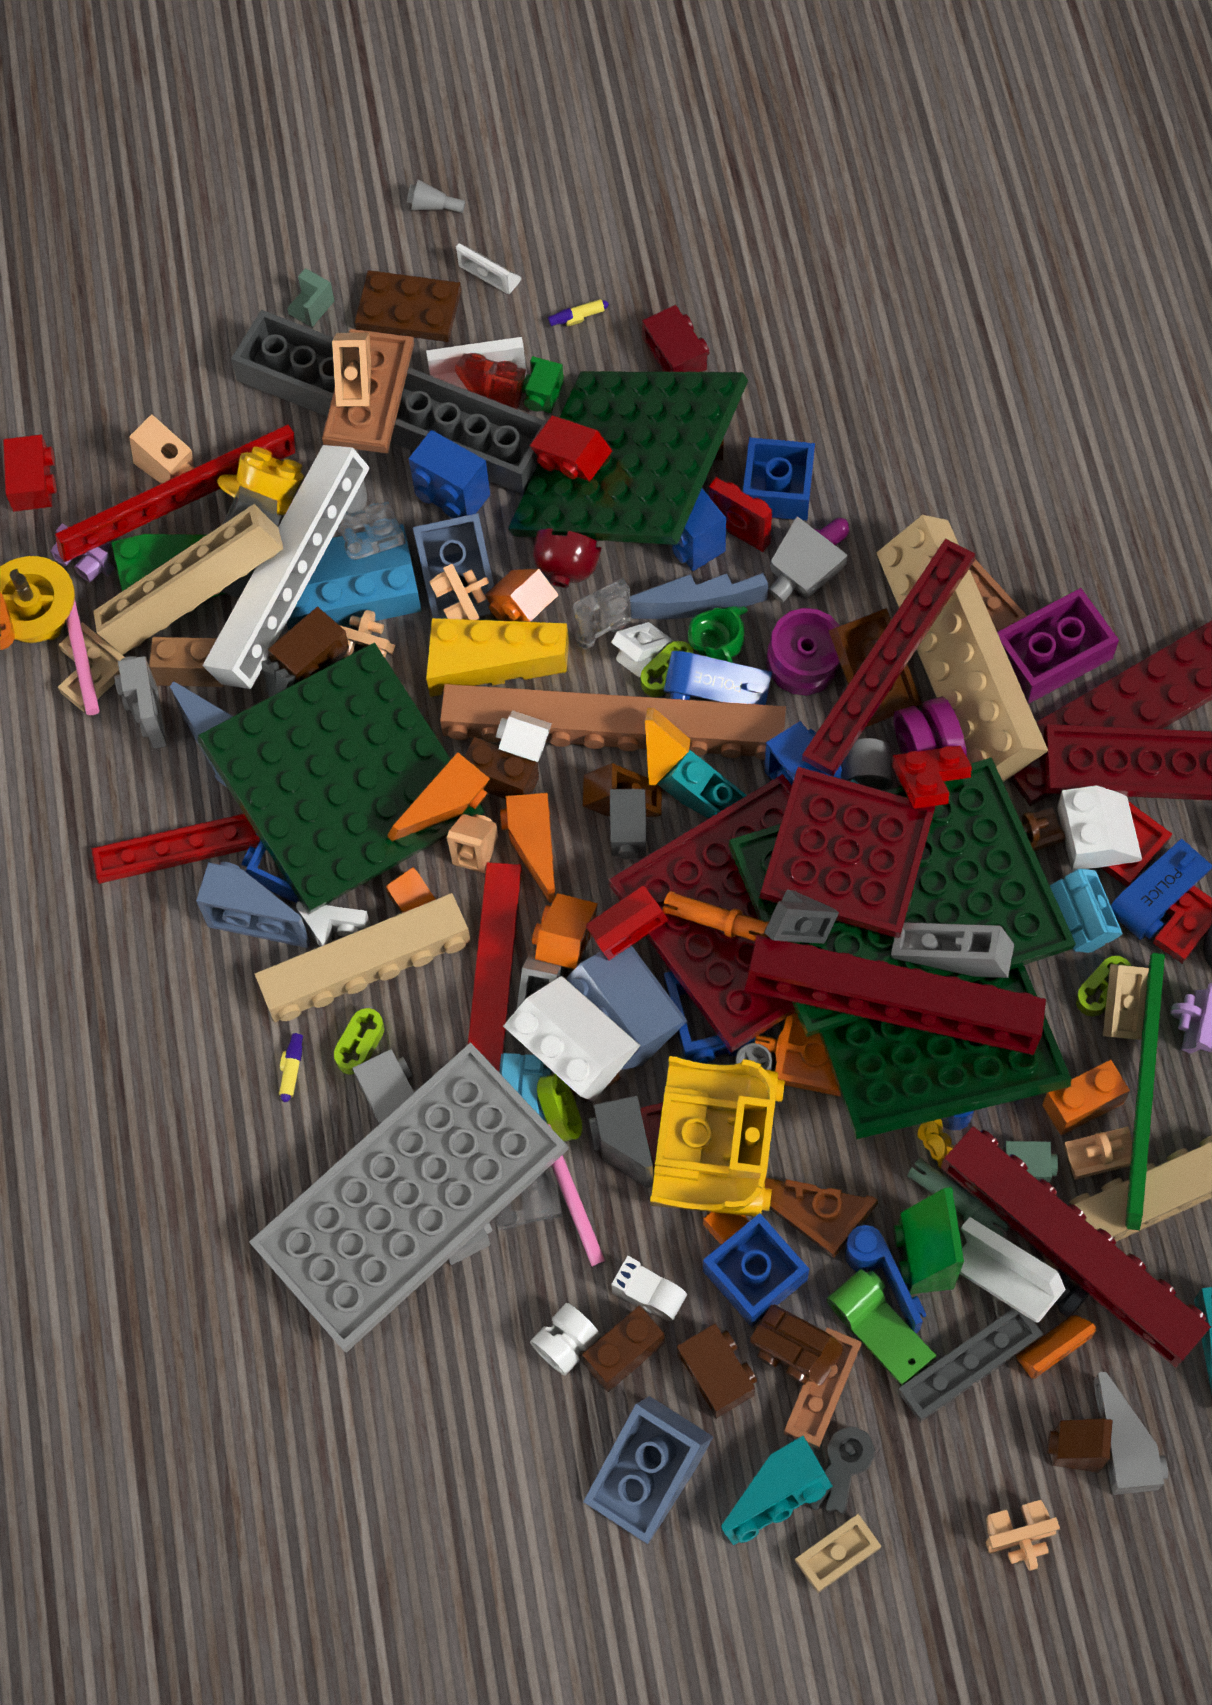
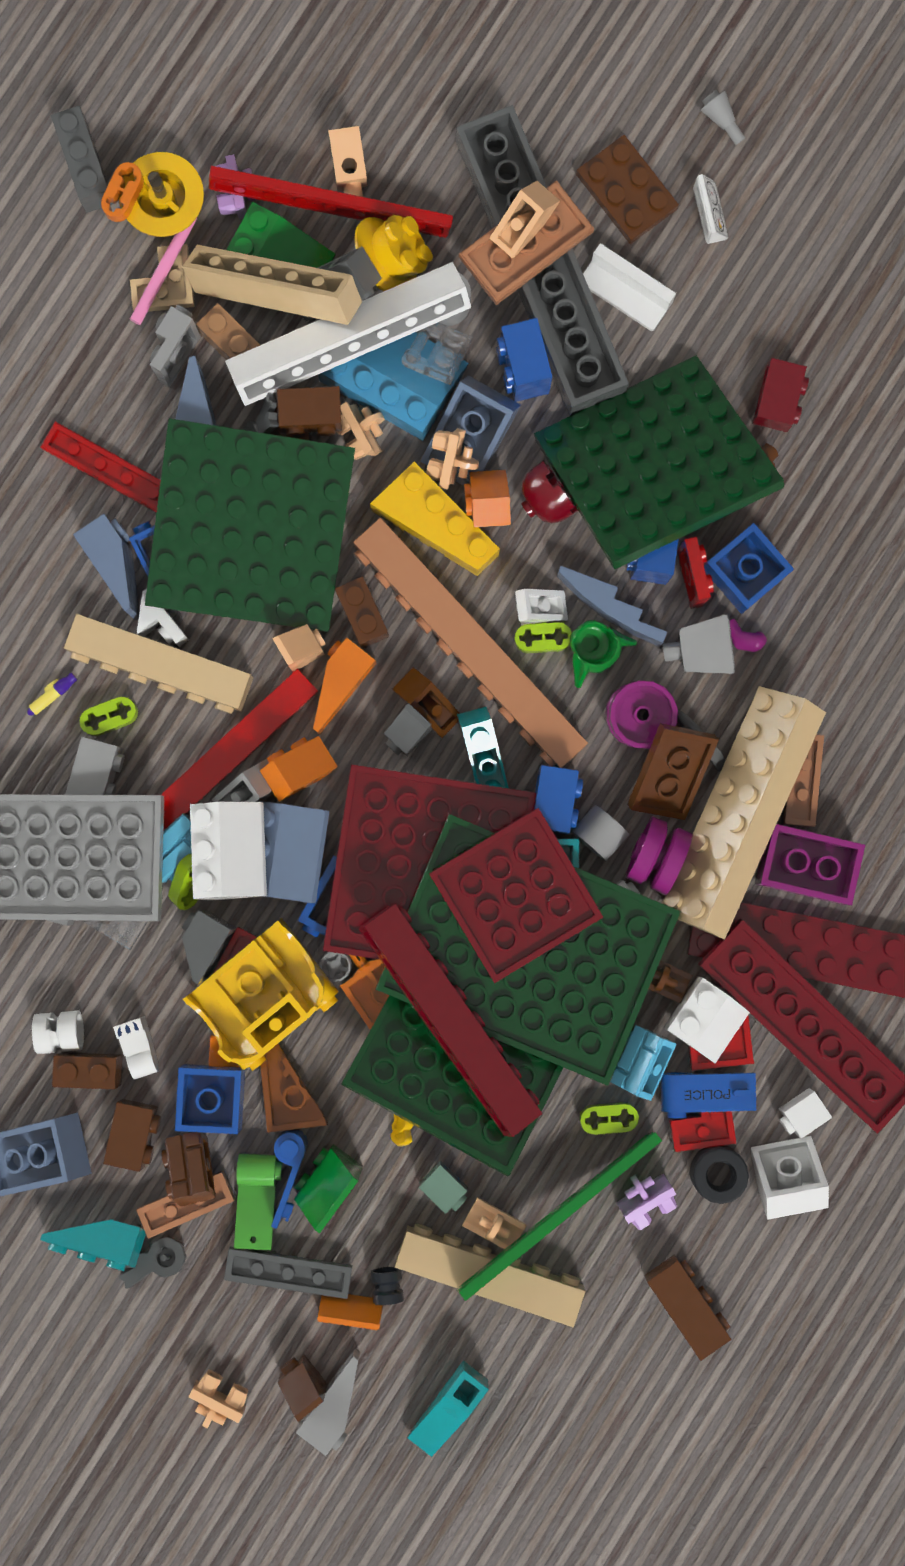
camera: 35 degrees right, 20 degrees up
(28, 472) = (249, 88): red brick -> none
(313, 300) = (564, 122): sand green panel -> none
(409, 891) = (229, 645): orange slope -> none
(444, 798) = (307, 604): orange slope -> none
(491, 379) = (622, 310): clear red slope -> none
(523, 735) = (394, 606): white brick -> none
(543, 384) = (658, 343): green brick -> none
(570, 448) = (621, 420): red brick -> none
(576, 314) = (737, 305): light yellow piece -> none
(577, 1211) = (142, 953): bright pink bar -> none
(611, 613) = (538, 562): clear plate -> none
(626, 922) = (333, 805): red panel -> none
(664, 745) = (481, 698): light orange slope -> none
(715, 680) = (551, 668): door -> none
(730, 922) = (394, 870): orange pin -> none
(801, 919) = (434, 916): dark grey slope -> none
(838, 1553) = (101, 1308): tan plate -> none
(888, 657) = (678, 783): dark red plate -> none
(925, 772) = (623, 883): red plate -> none
(956, 948) = (520, 1023): light grey slope -> none
(964, 1201) = (382, 1177): sand green pin -> none
(1009, 1272) = (359, 1244): white panel -> none
(1076, 1246) = (411, 1273): dark red brick -> none
(1087, 1098) = (524, 1183): orange brick -> none
(1125, 1001) = (607, 1145): tan plate -> none

